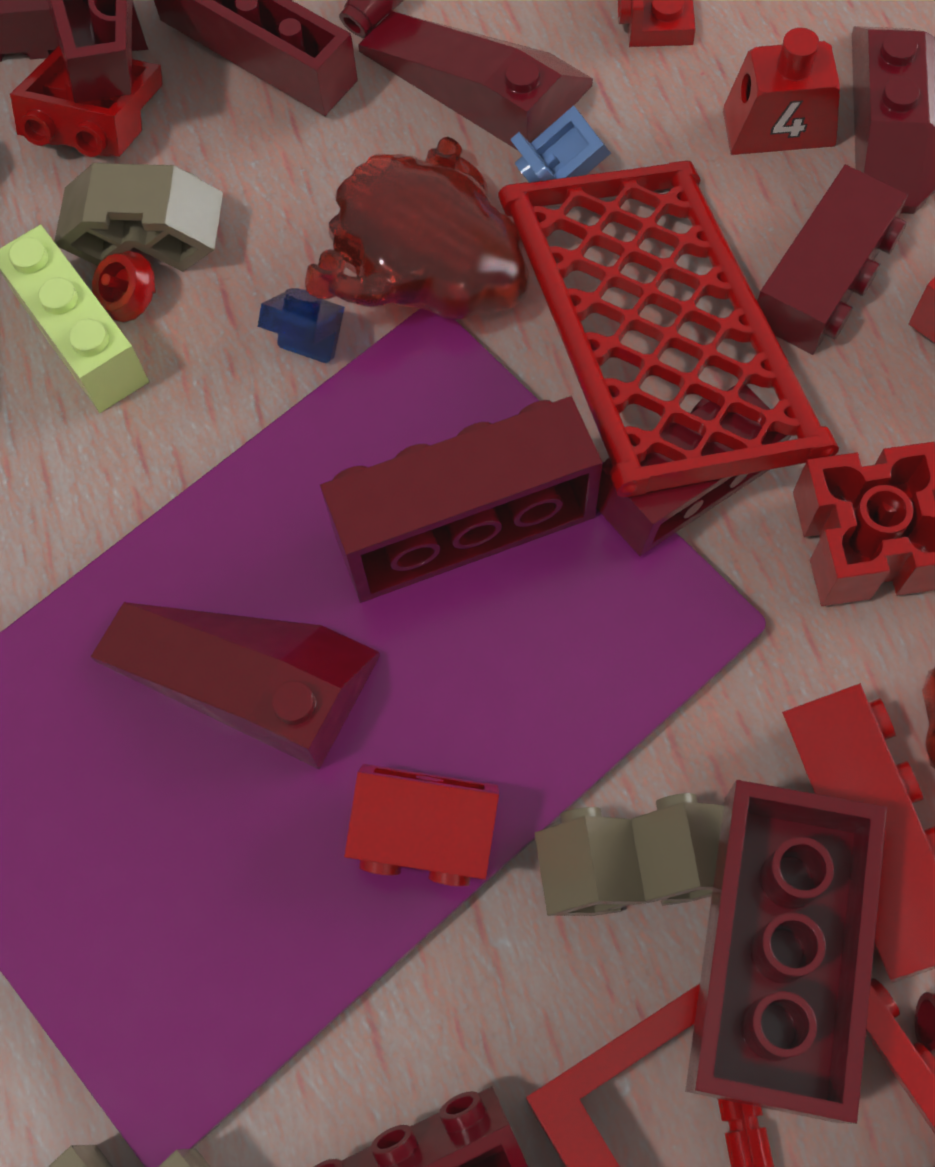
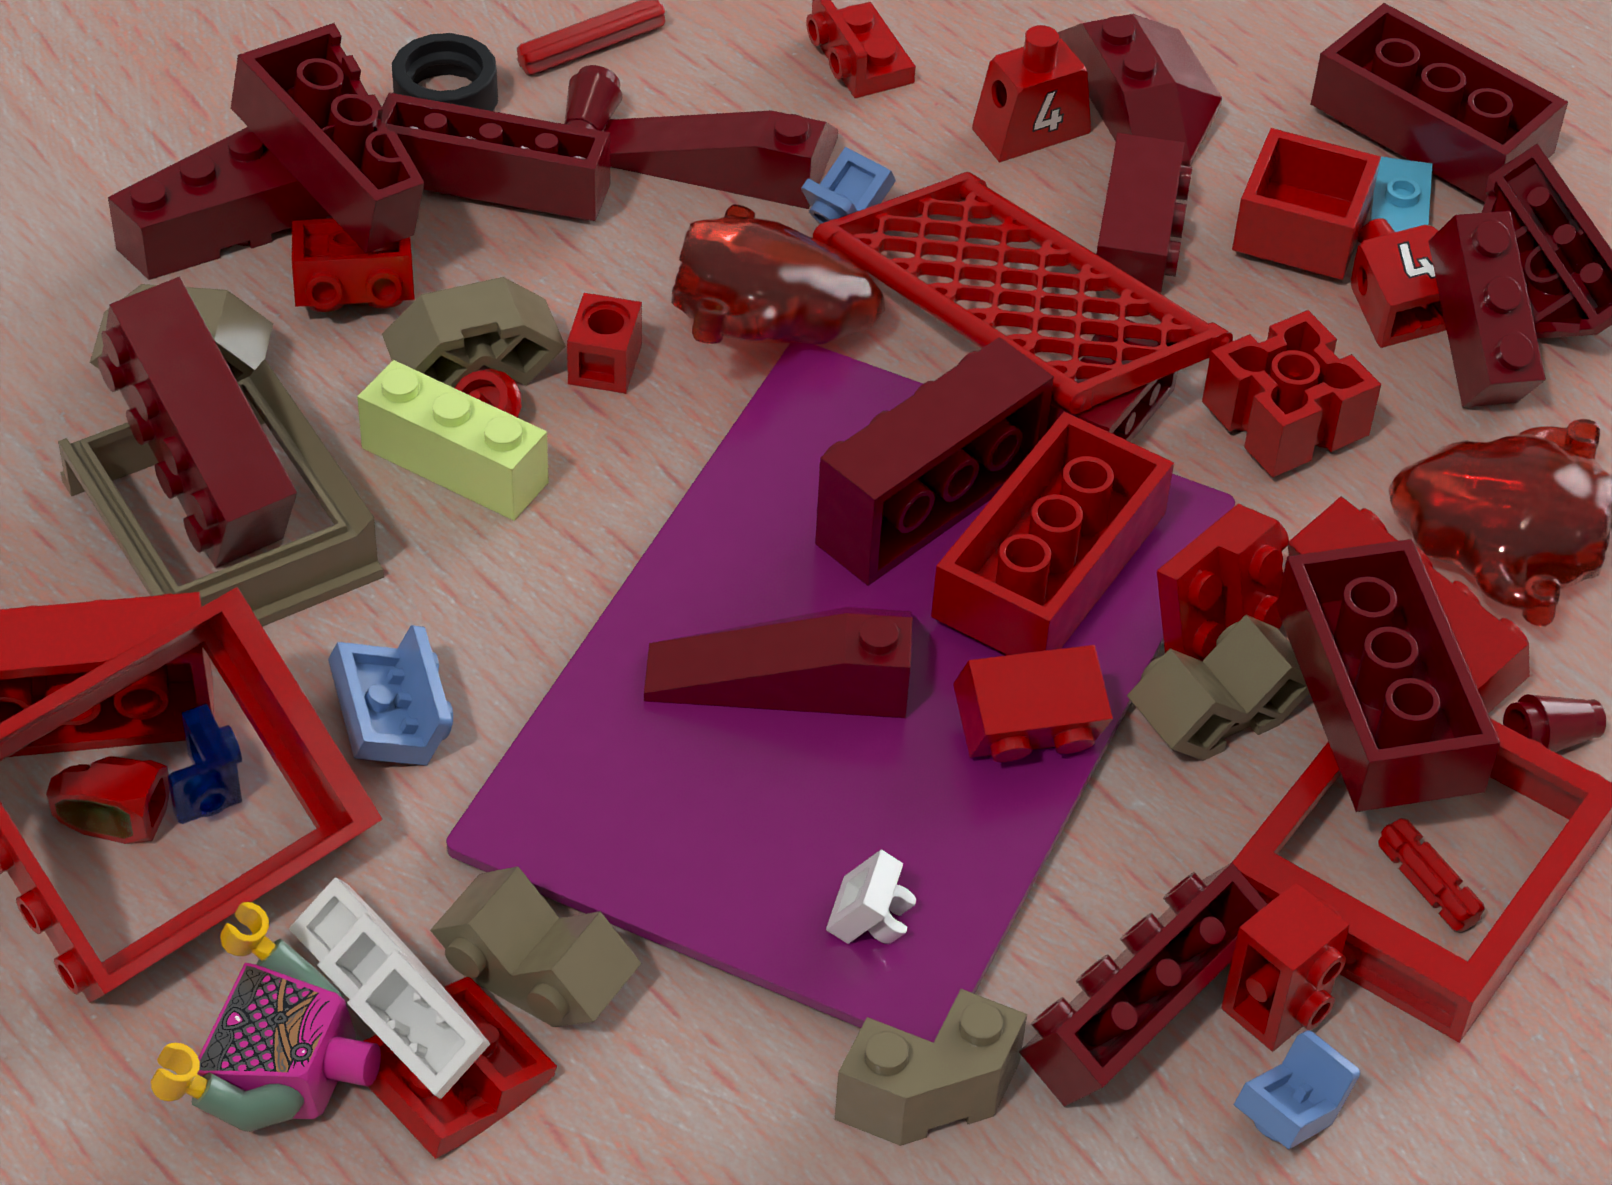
camera: 30 degrees left, 20 degrees down
(154, 988) = (866, 899): none -> white tile
(255, 272) = (604, 343): none -> red brick
(303, 323) = (690, 384): clear blue bracket -> none
(539, 630) = (1052, 539): none -> red brick
(688, 745) = (1220, 579): none -> red plate

